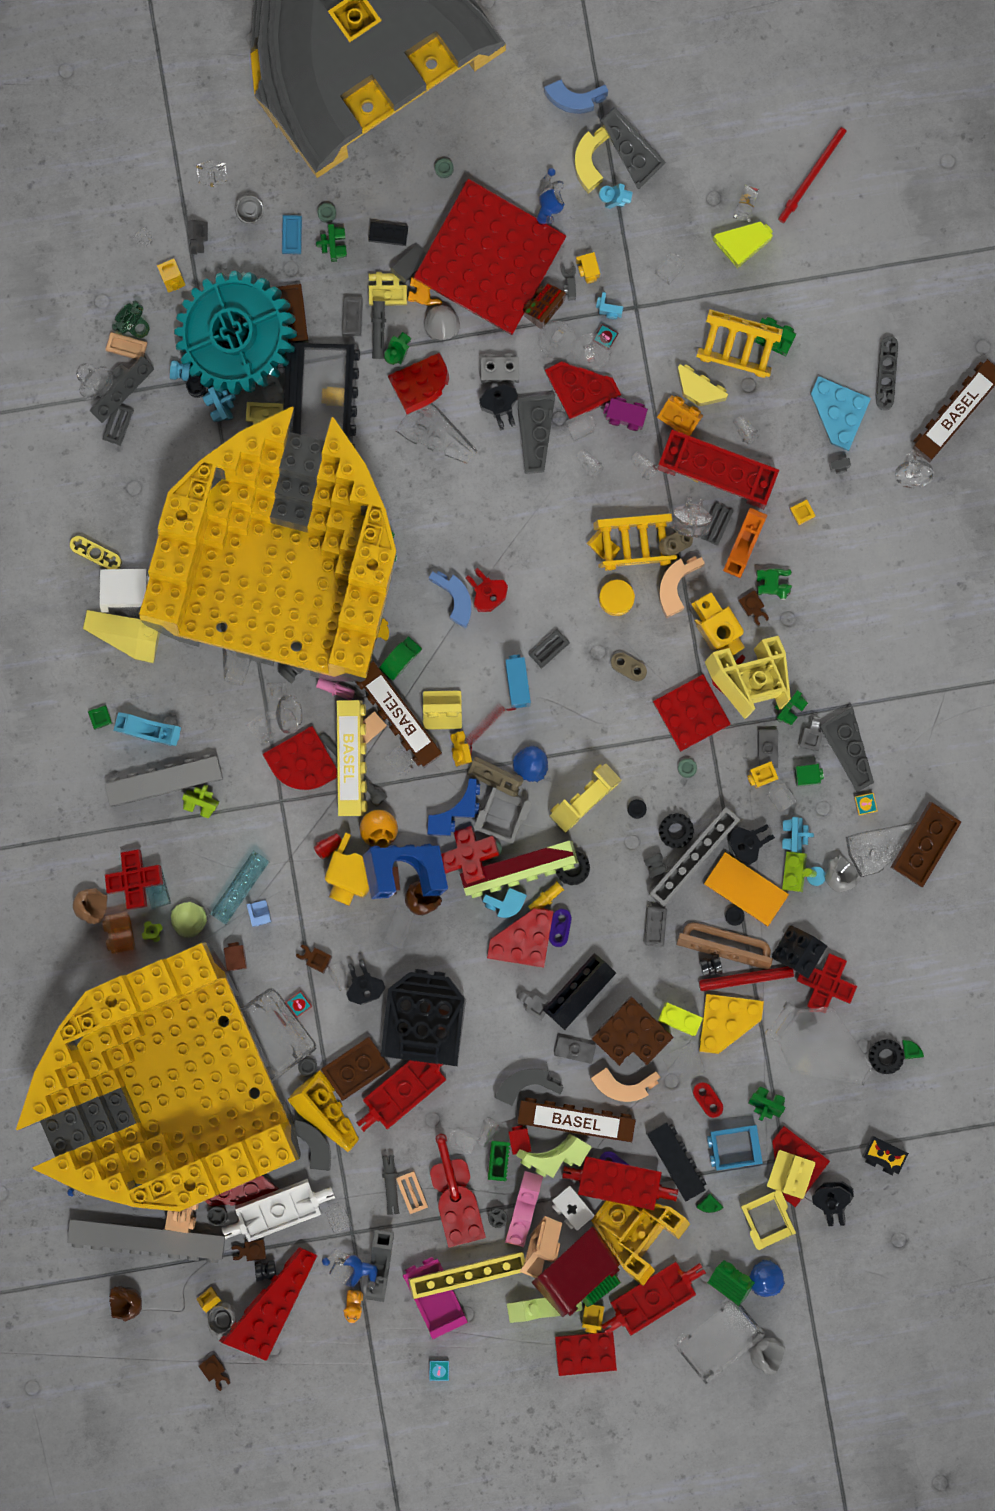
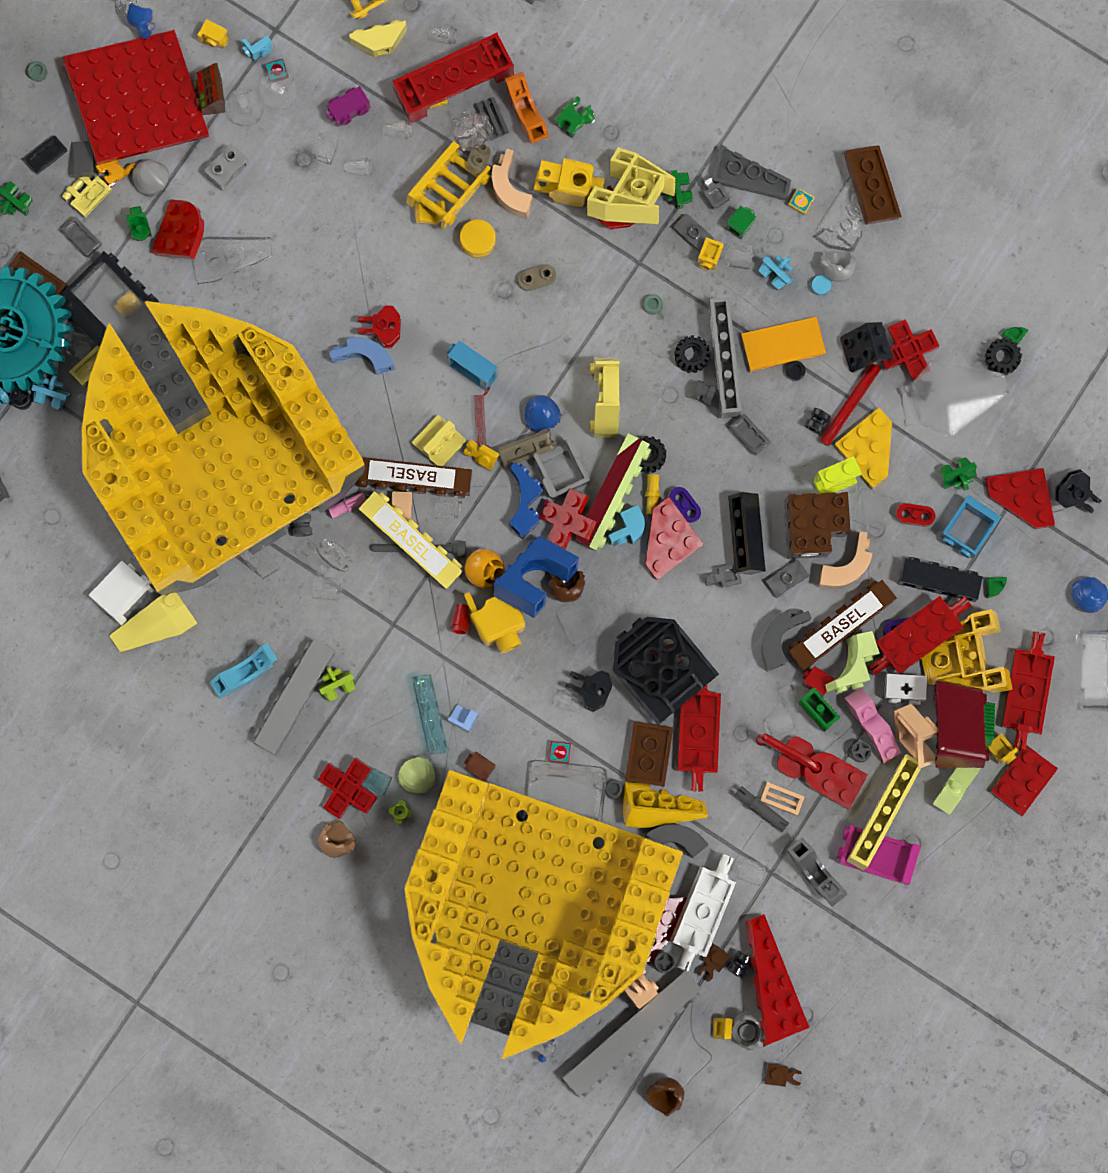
camera: 50 degrees left, 5 degrees down
(85, 542) = (60, 599): light yellow beam -> none
(100, 717) = (200, 701): green tile -> none
(119, 933) = (378, 837): clear orange brick -> none
(302, 761) = (379, 581): red plate -> none
(316, 959) = (539, 707): reddish brown plate -> none
(349, 1269) = (798, 897): piece -> none
(353, 1306) = (830, 923): light orange animal -> none
(378, 329) = (103, 219): dark grey pin -> none
(400, 658) = (371, 436): green brick -> none
(439, 1370) = (936, 902): tile -> none
(501, 405) = (250, 189): black hinge -> none
(535, 426) = (291, 178): dark grey wing -> none
(537, 659) = (468, 339): dark grey tile -> none
(570, 287) = (212, 57): dark grey plate -> none
(580, 388) = (297, 122): red plate -> none
(637, 809) = (648, 368): black tile -> none
(680, 415) = (385, 71): light orange bracket -> none
(691, 713) = (614, 264): red plate -> none
(727, 952) = (817, 400): medium nougat piece -> none
(731, 1282) = (1069, 621): green brick -> none
(749, 841) = (751, 308): black hinge -> none
(751, 605) = (576, 148): reddish brown plate -> none
(782, 1206) = (1045, 532): light yellow piece -> none
(791, 1174) = (1028, 503): light yellow bracket -> none
(795, 871) = (804, 296): lime plate -> none
(802, 512) = (542, 50): yellow tile -> none
(885, 1155) = (1076, 424): brick -> none

